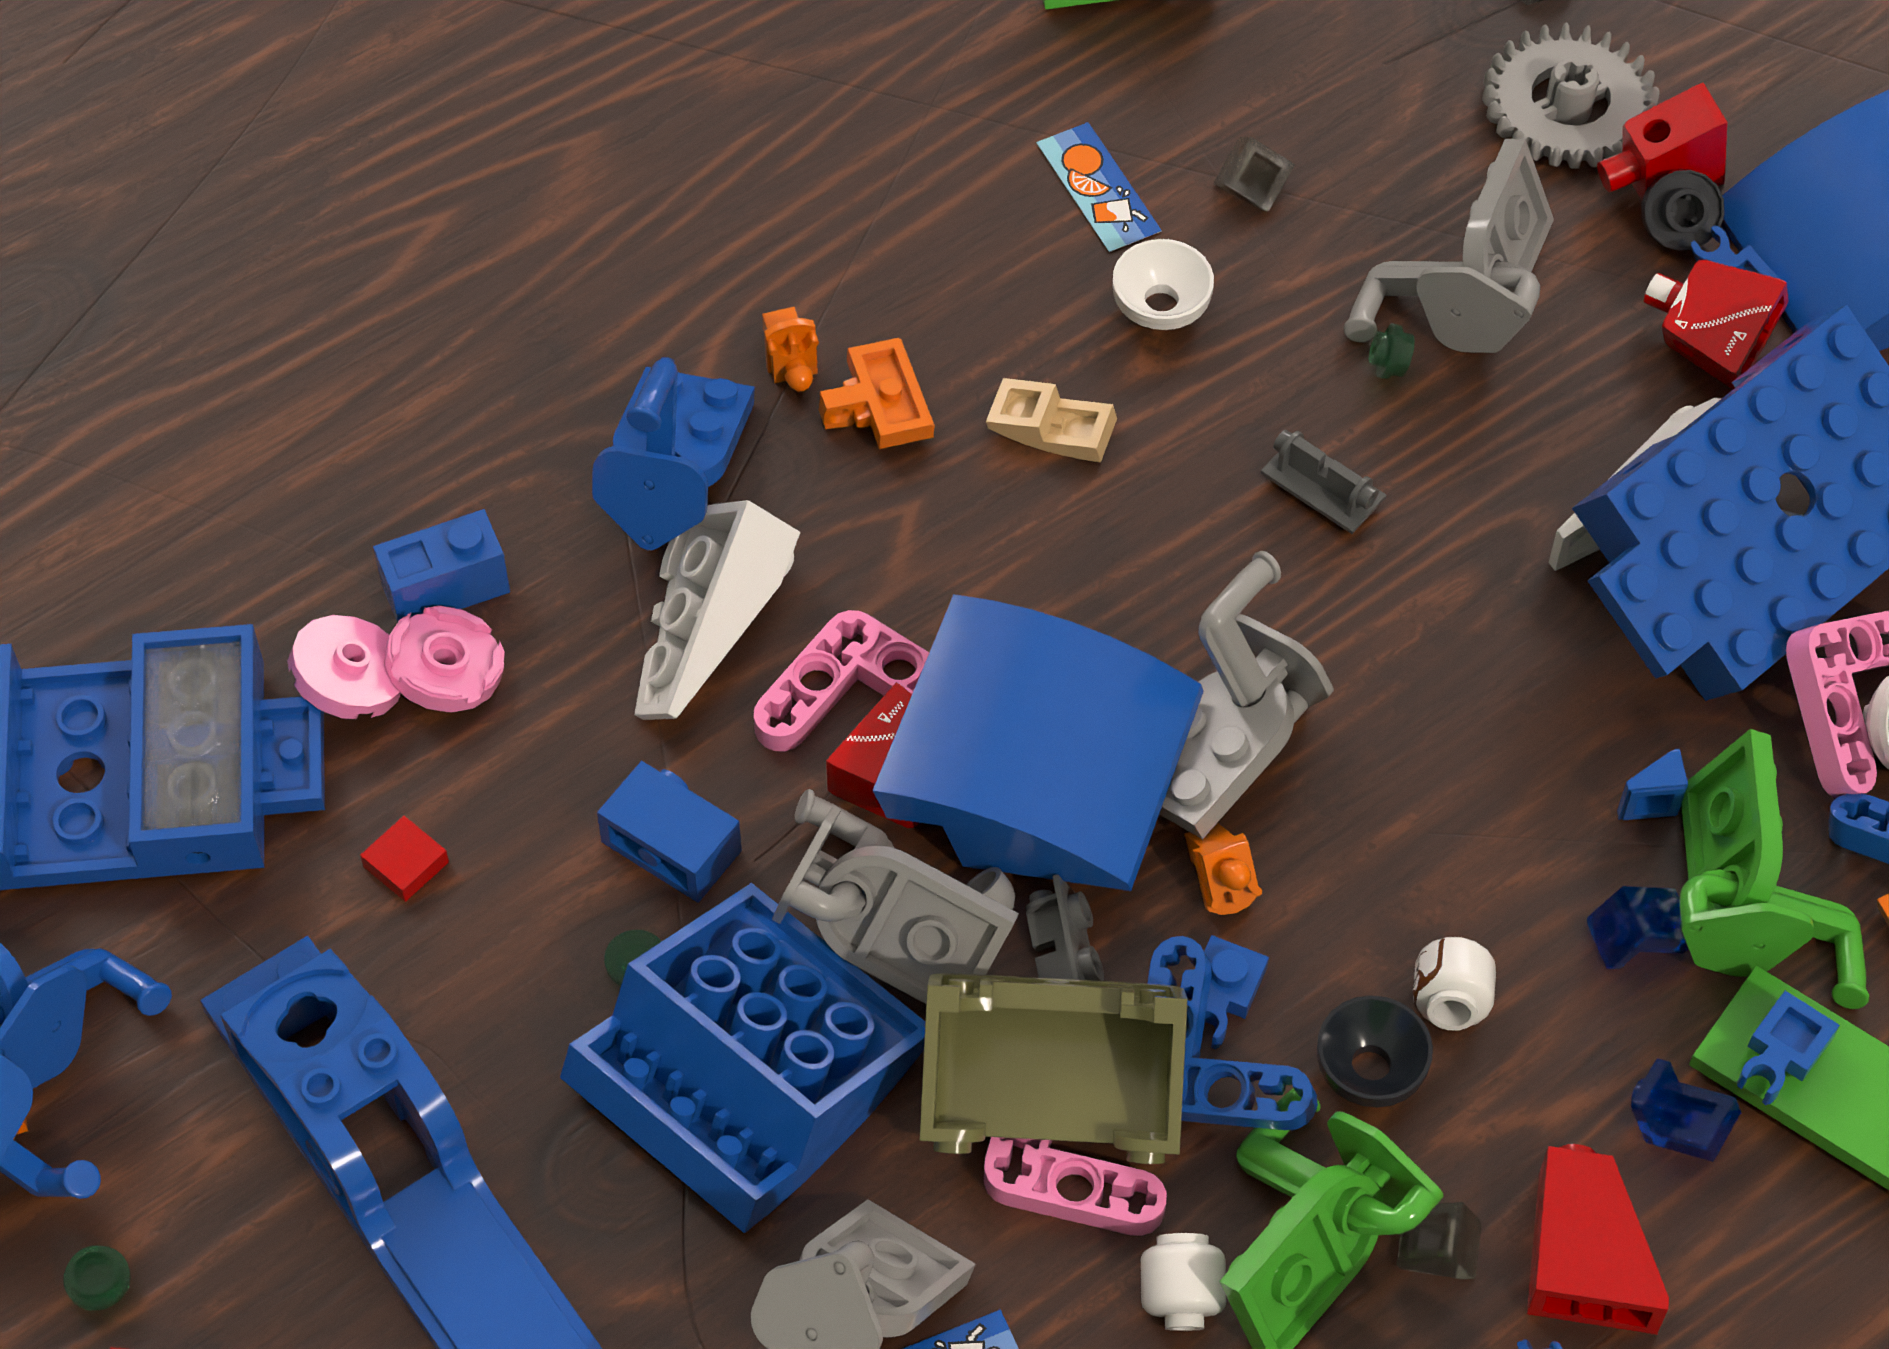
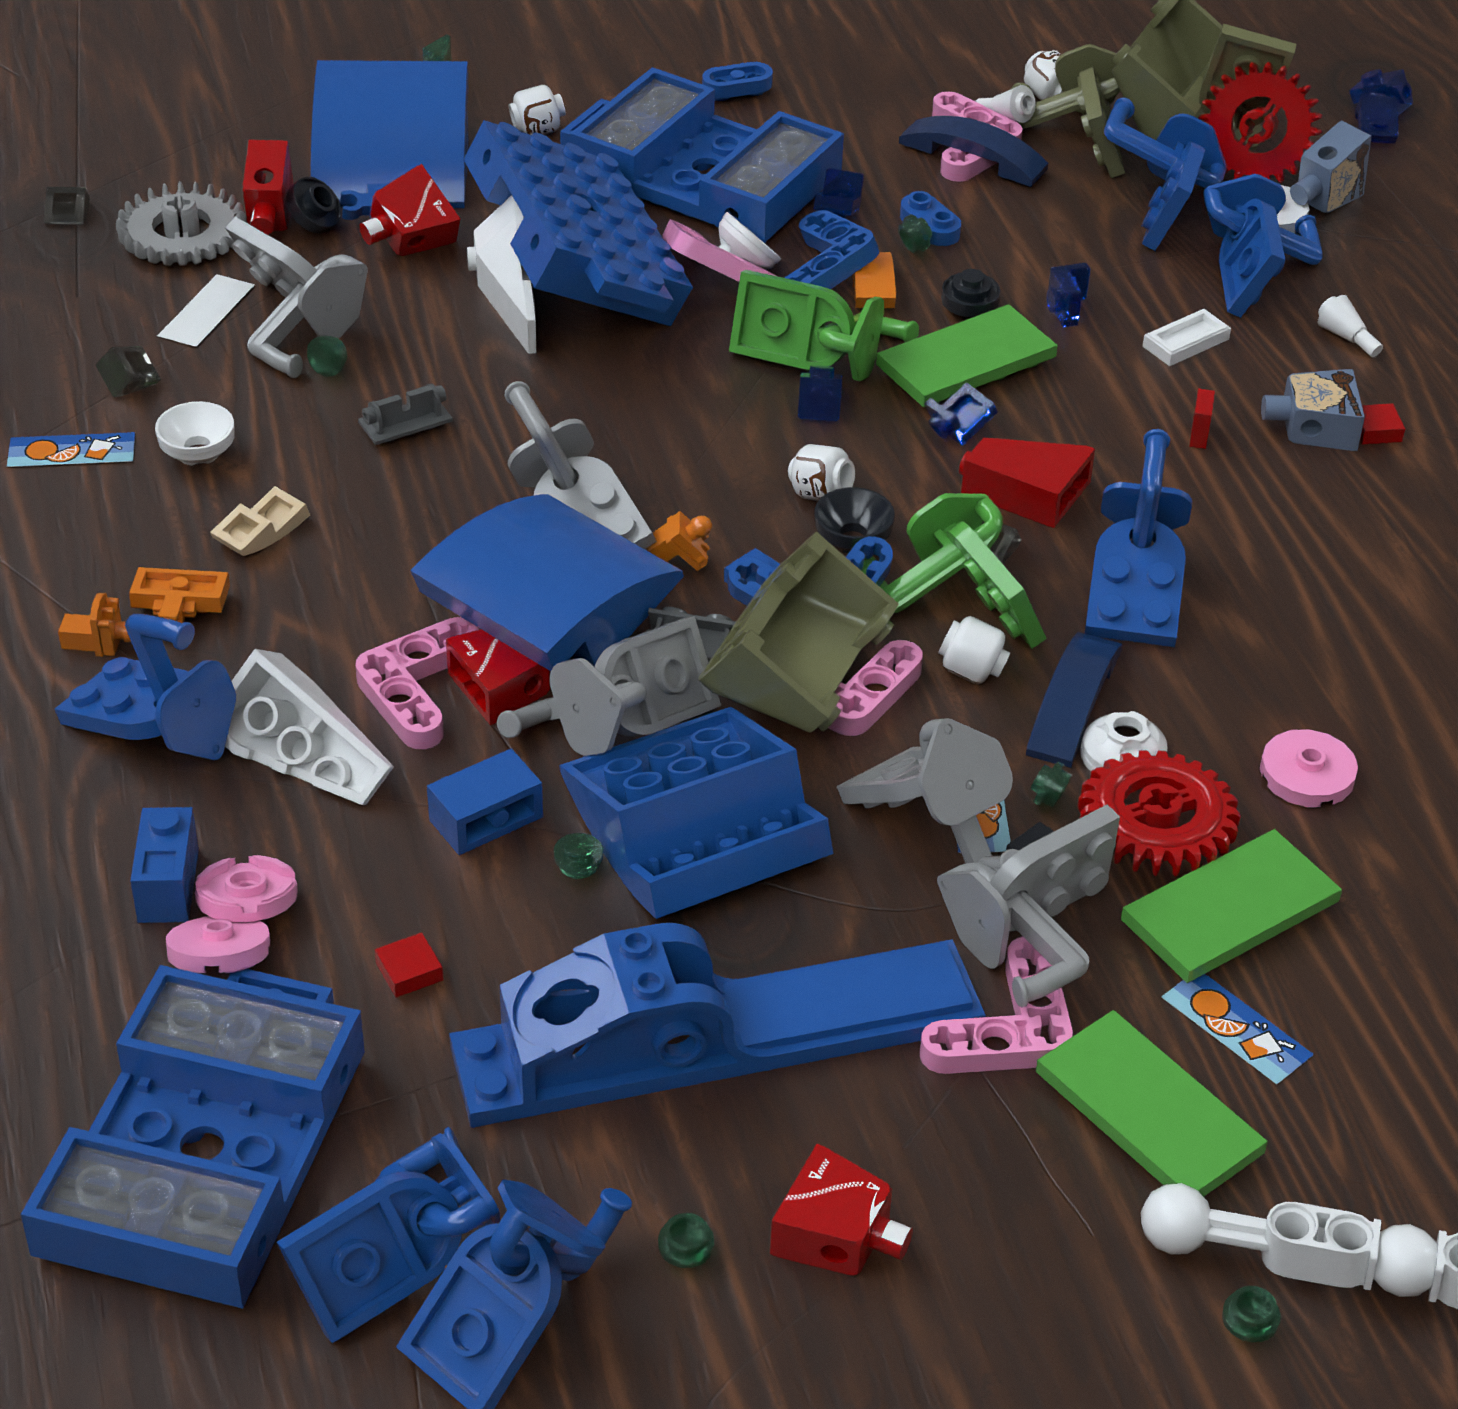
camera: 70 degrees left, 15 degrees down
(1415, 195) = (206, 310): none -> white sticker
(1655, 790) = (730, 351): blue slope -> none
(1788, 1041) = (944, 347): blue plate -> none

